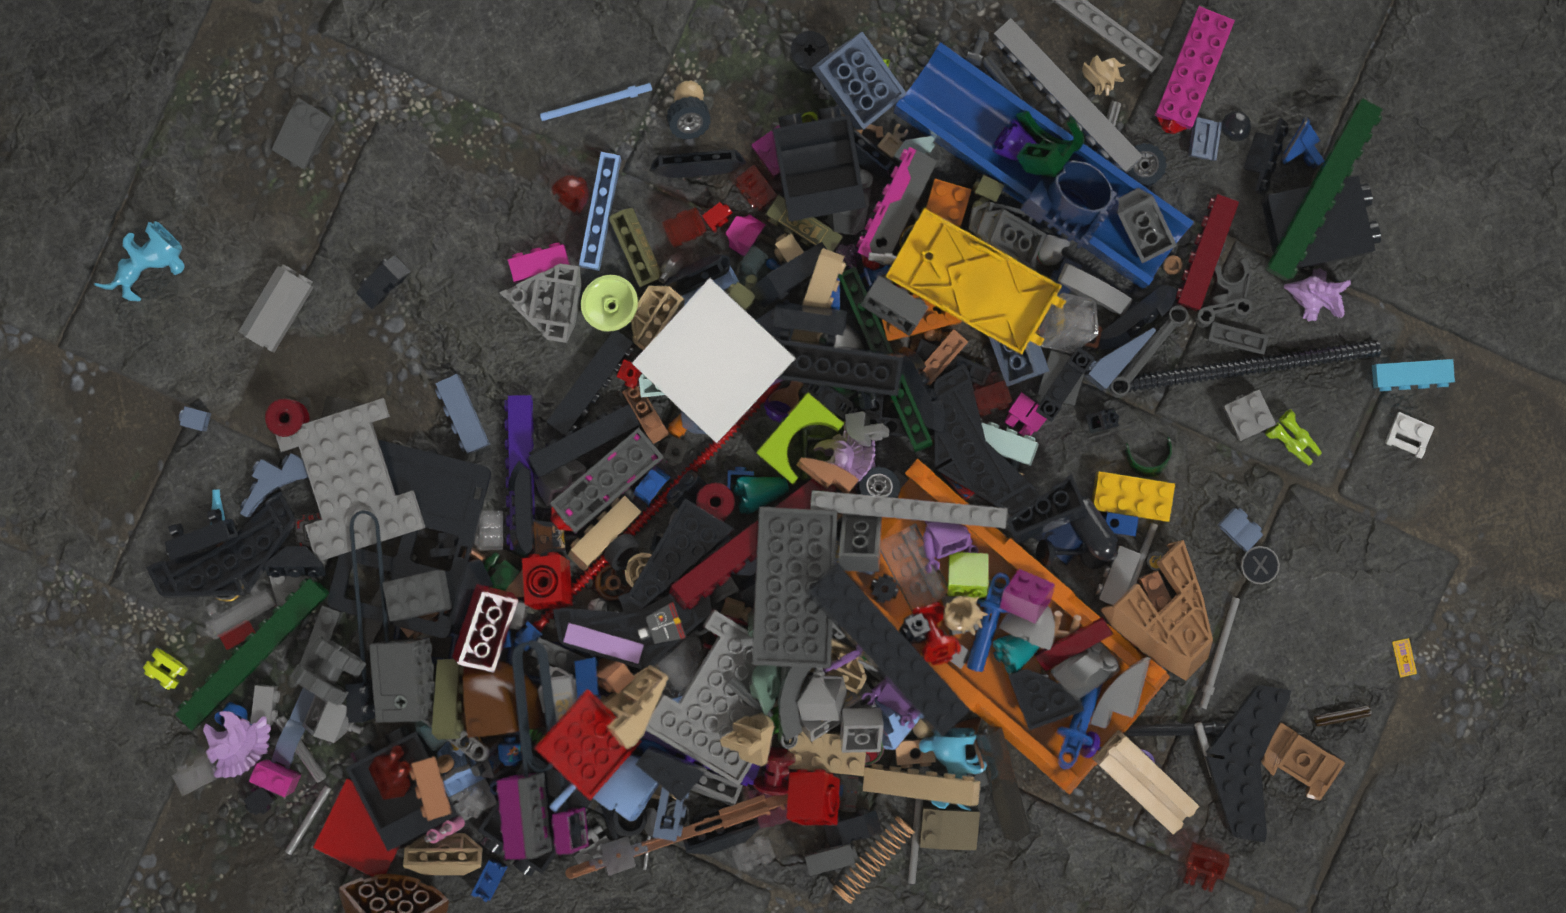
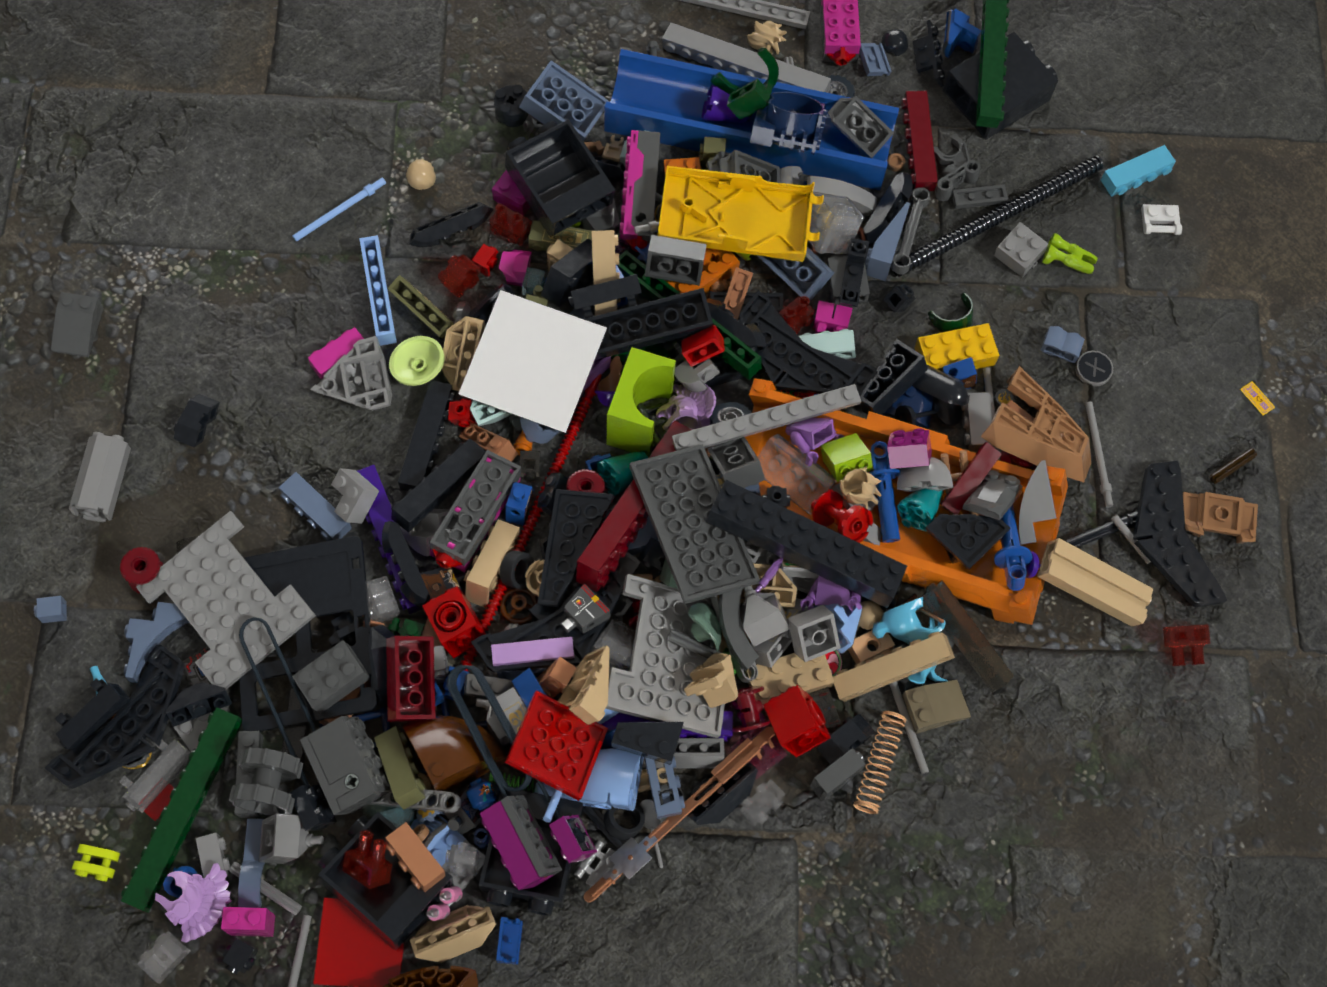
camera: 25 degrees left, 20 degrees down
(503, 421) = (357, 495): none -> light grey brick
(572, 192) = (345, 285): clear red cylinder -> none
(688, 118) = (435, 193): black wheel -> none
(827, 473) = (679, 418): nougat slope -> none
(881, 409) = (703, 345): none -> red brick
(915, 628) = (823, 514): black brick -> none
(1317, 293) = (1029, 132): lavender piece -> none

